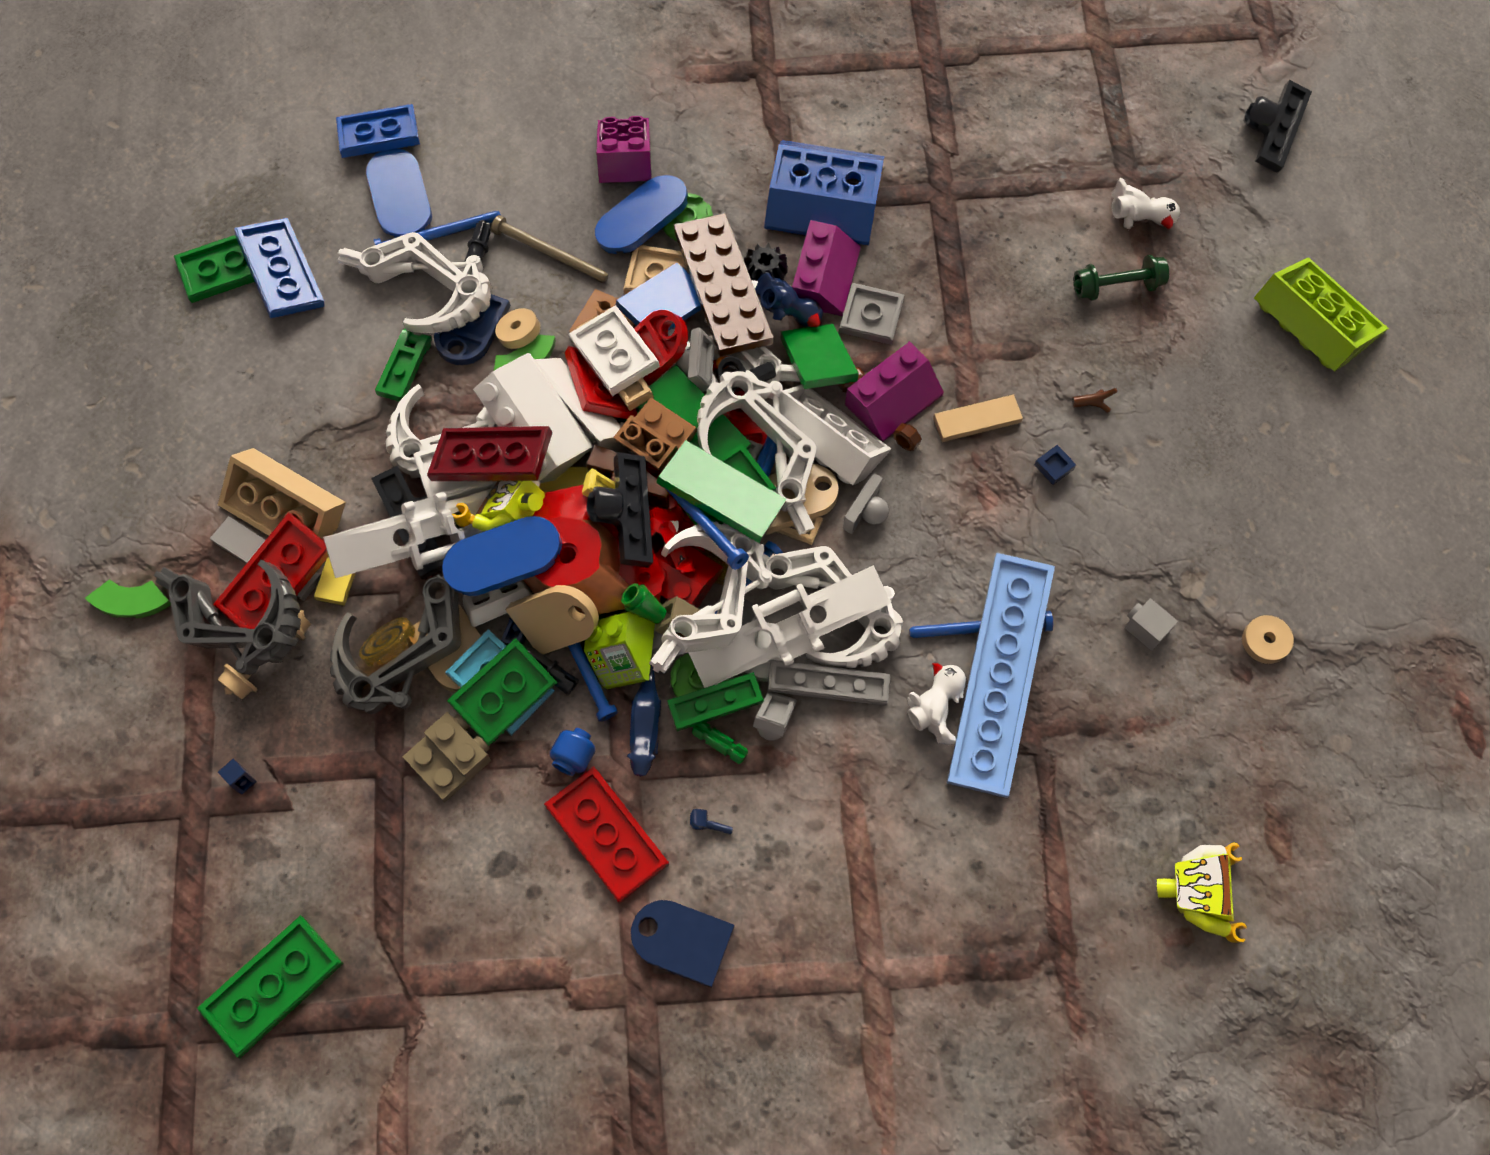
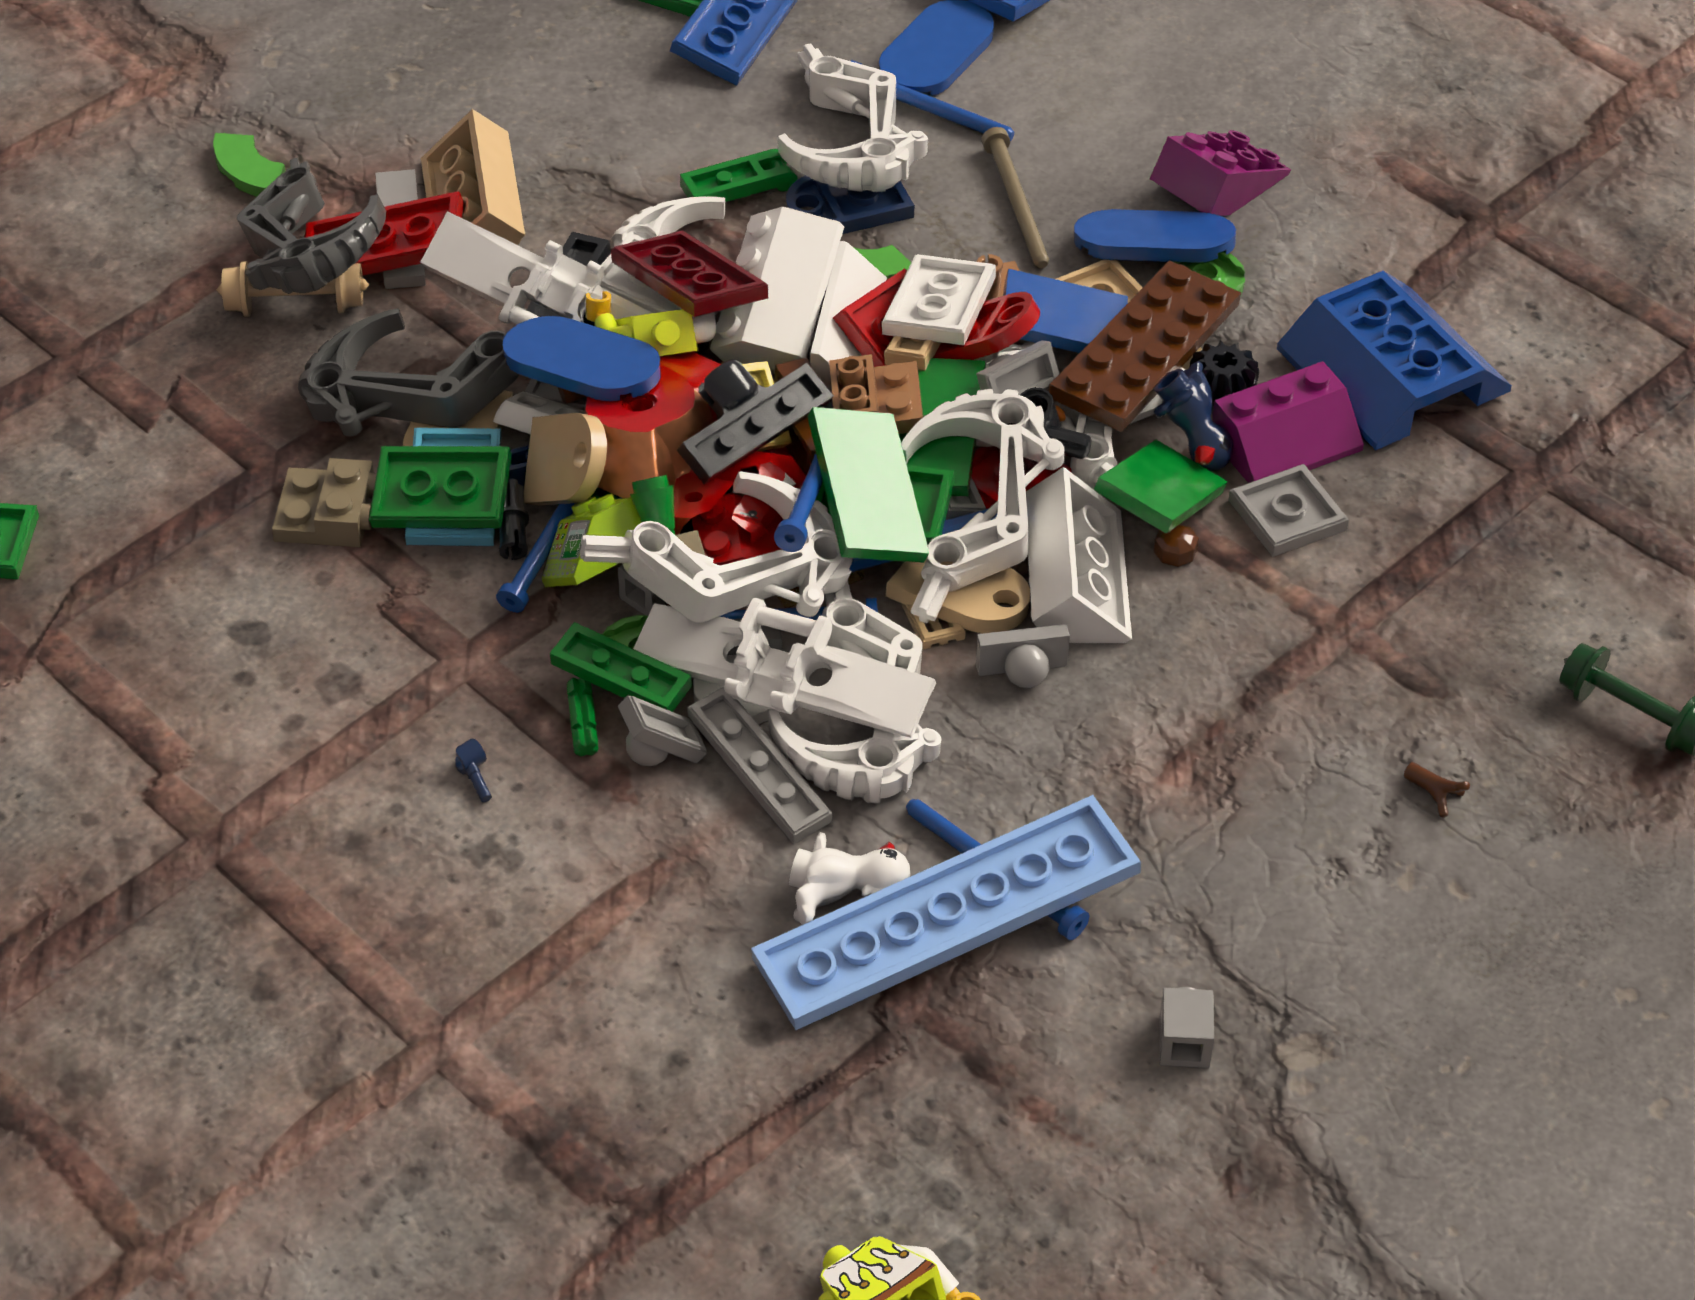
camera: 50 degrees right, 20 degrees down
(237, 776) = (136, 356): dark blue piece -> none
(333, 589) = (432, 295): light yellow tile -> none
(387, 642) = (399, 364): clear yellow tile -> none
(478, 243) = (952, 141): black axle -> none
(517, 328) = (888, 232): tan piece -> none
(572, 751) = (434, 592): blue head -> none
(606, 834) = (370, 693): red tile -> none
(644, 727) = (526, 628): dark blue animal -> none
(684, 942) = (311, 840): dark blue tile -> none
(894, 391) = (1204, 586): magenta slope -> none
(907, 437) = (1160, 637): reddish brown tile -> none
(977, 418) = (1271, 691): tan tile -> none
(1055, 464) = (1295, 799): dark blue plate -> none
(1276, 630) = (1318, 1156): tan piece -> none

